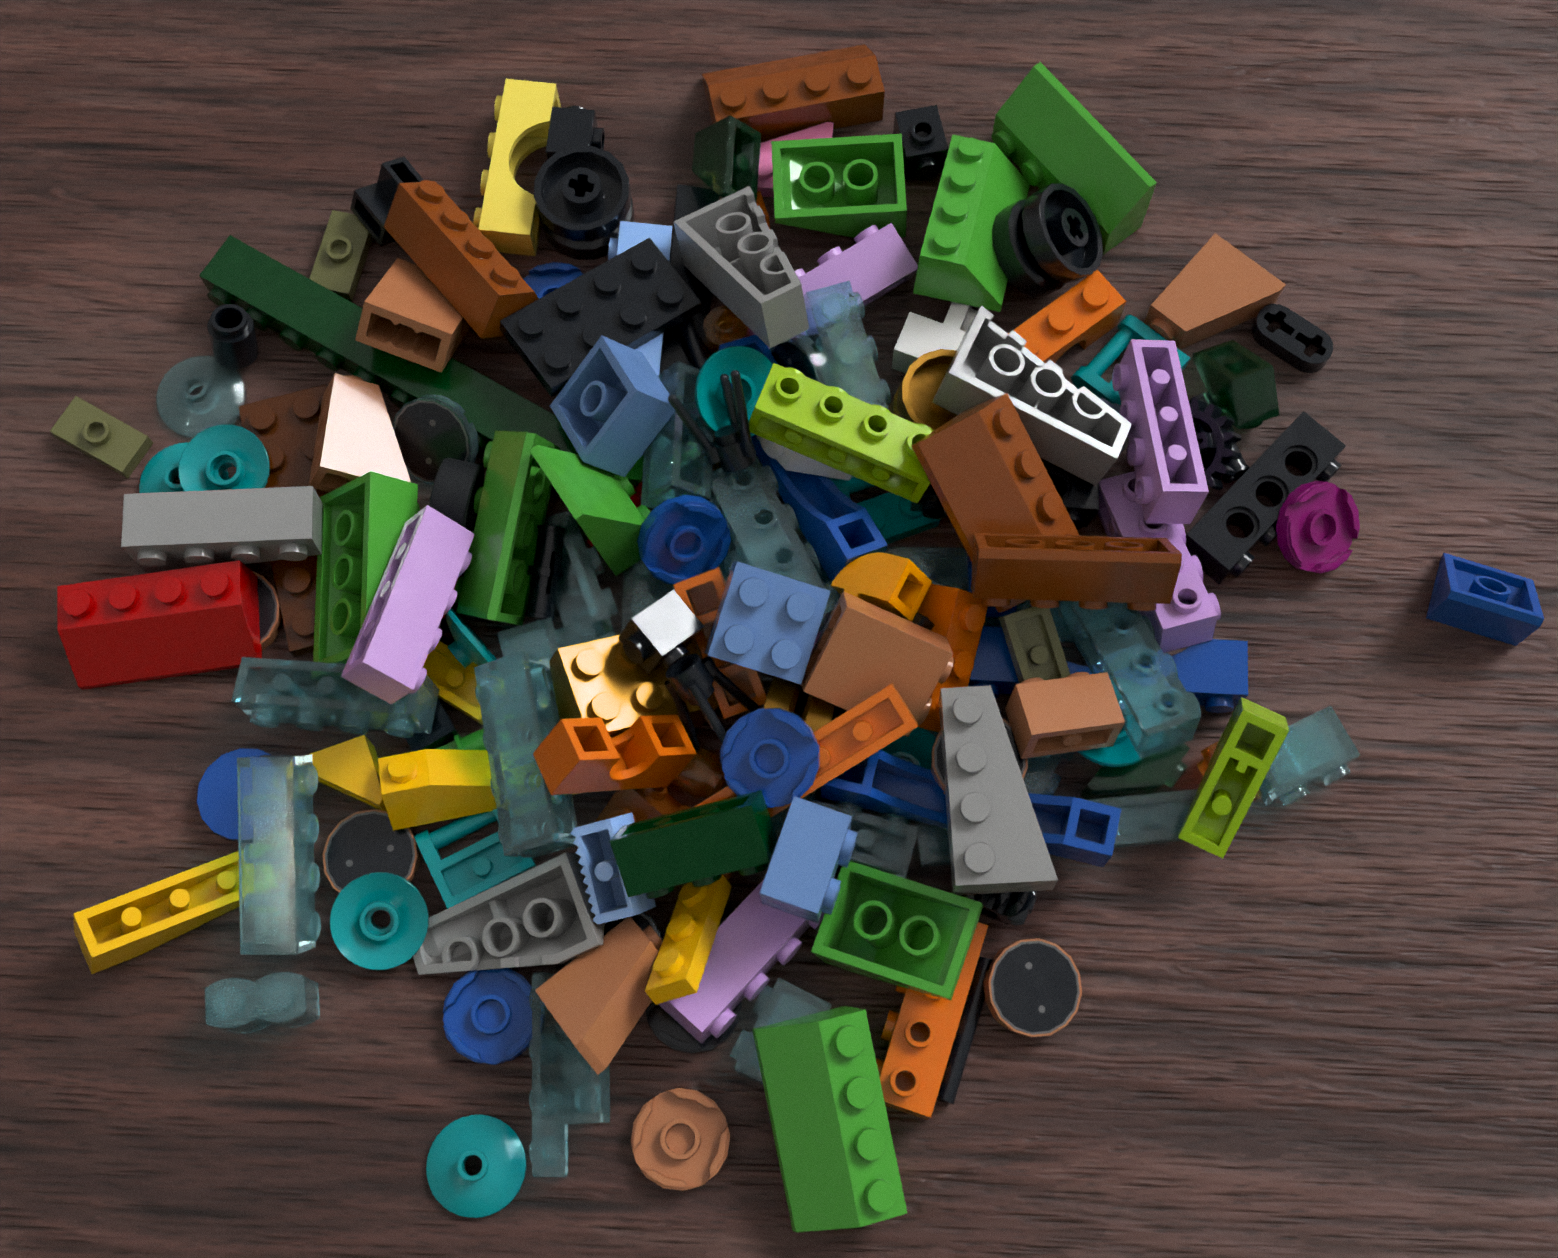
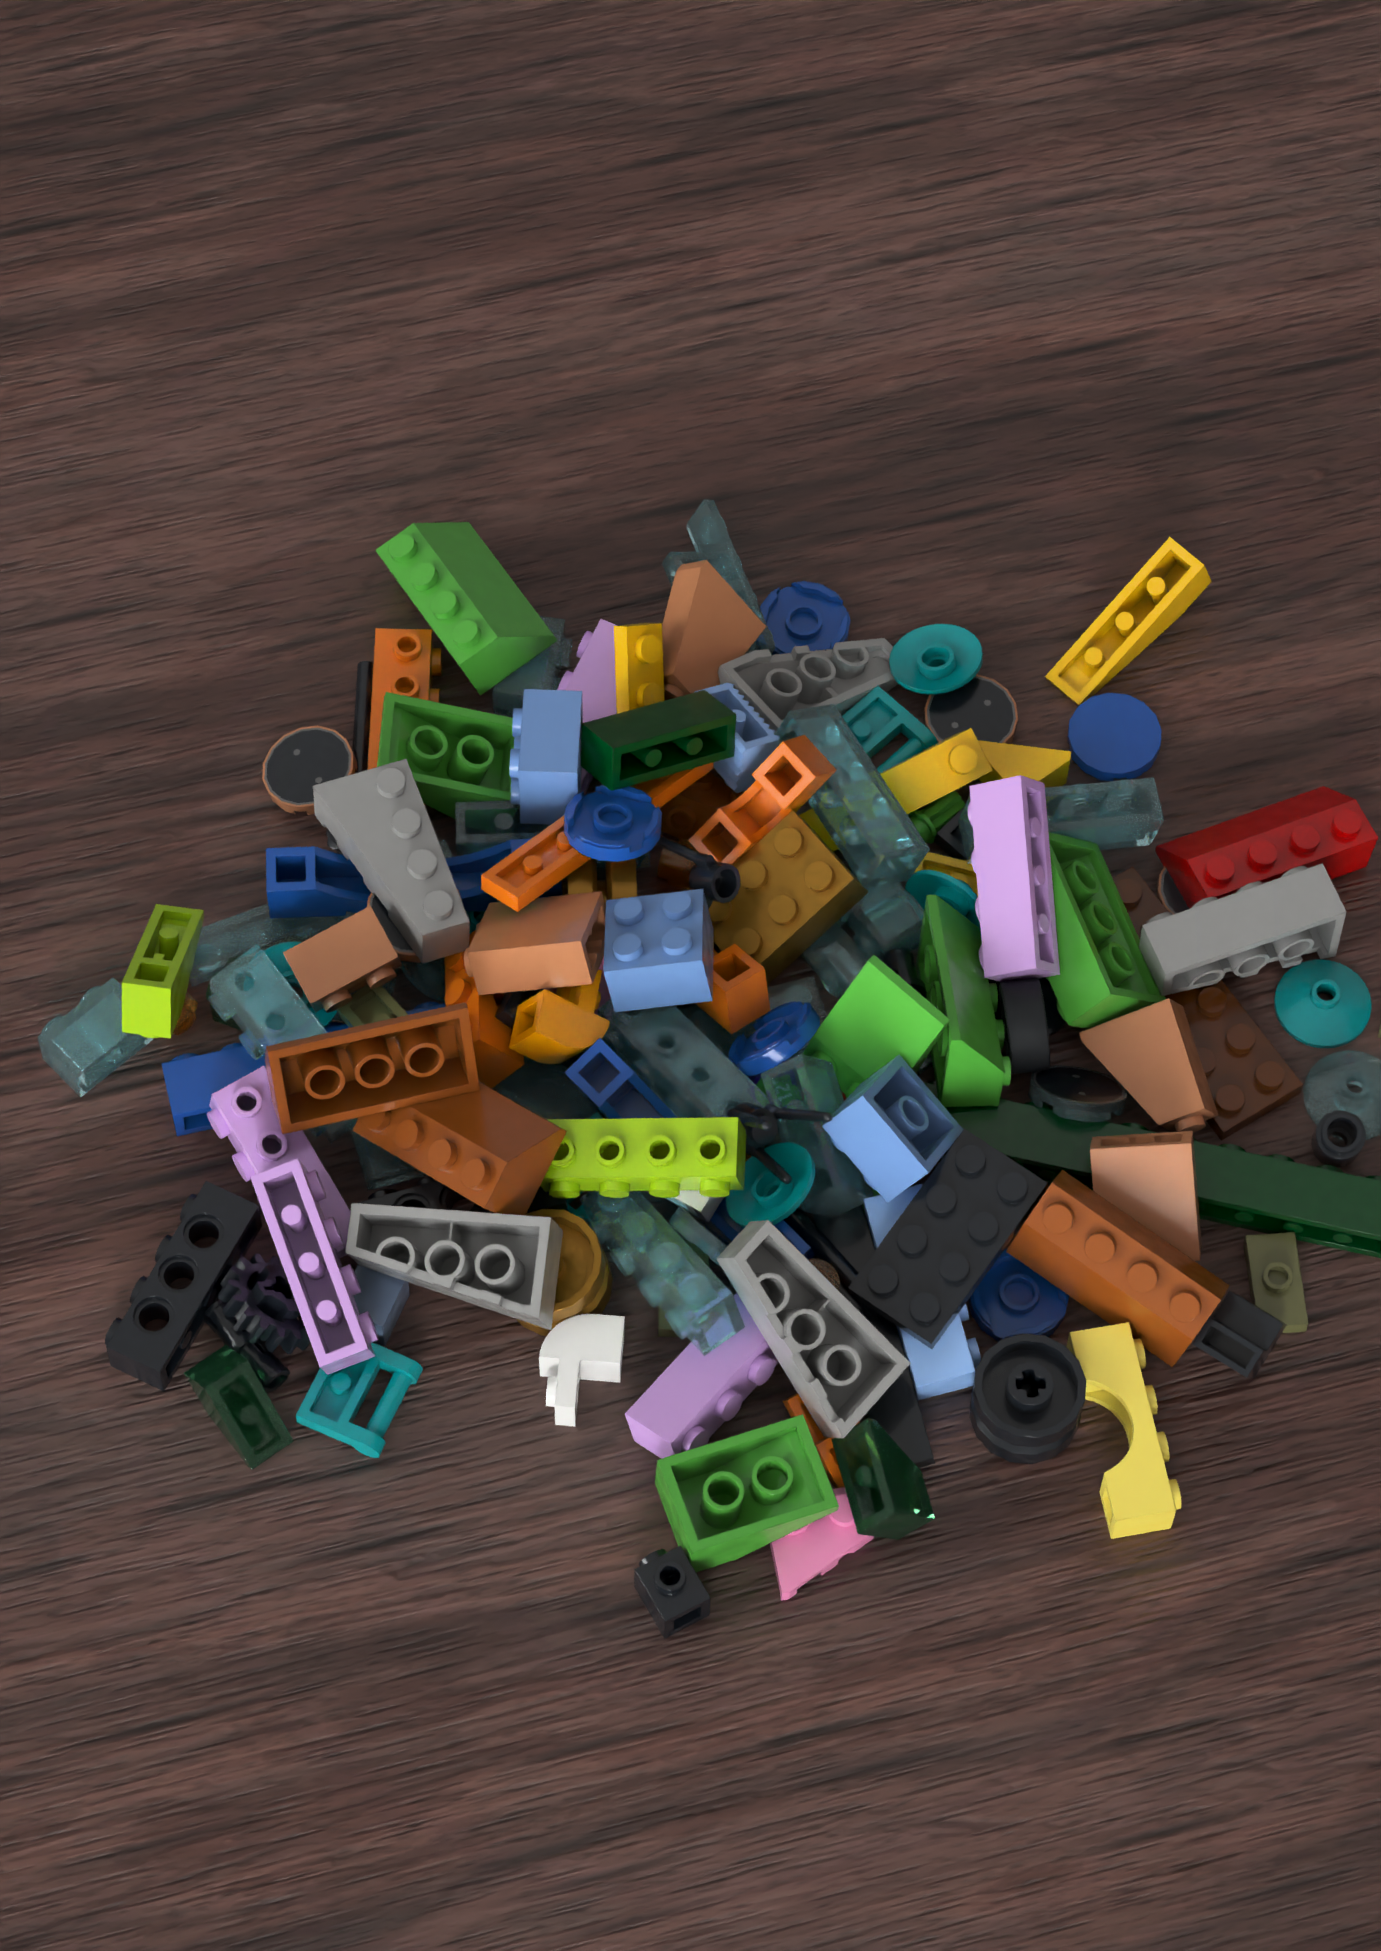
camera: 160 degrees right, 10 degrees down
(218, 449) = (1283, 990): teal dish -> none
(251, 1006) = (1010, 568): clear light blue brick -> none
(277, 854) = (1050, 672): clear light blue brick -> none
(501, 1170) = (768, 528): teal dish -> none
(572, 128) = (1072, 1478): black brick -> none
(660, 633) = (760, 920): brick -> none
(680, 1139) = (595, 576): nougat tile -> none
(799, 92) = (844, 1617): dark orange slope -> none
(958, 247) = (577, 1482): bright green slope -> none
(1047, 240) = (489, 1478): black wheel -> none
(1063, 143) = (487, 1603): bright green slope -> none
(1073, 318) = (430, 1421): orange arch -> none
(1212, 295) = (288, 1497): nougat slope -> none
(1292, 338) = (180, 1495): black beam -> none
(1317, 527) = (119, 1263): magenta tile -> none

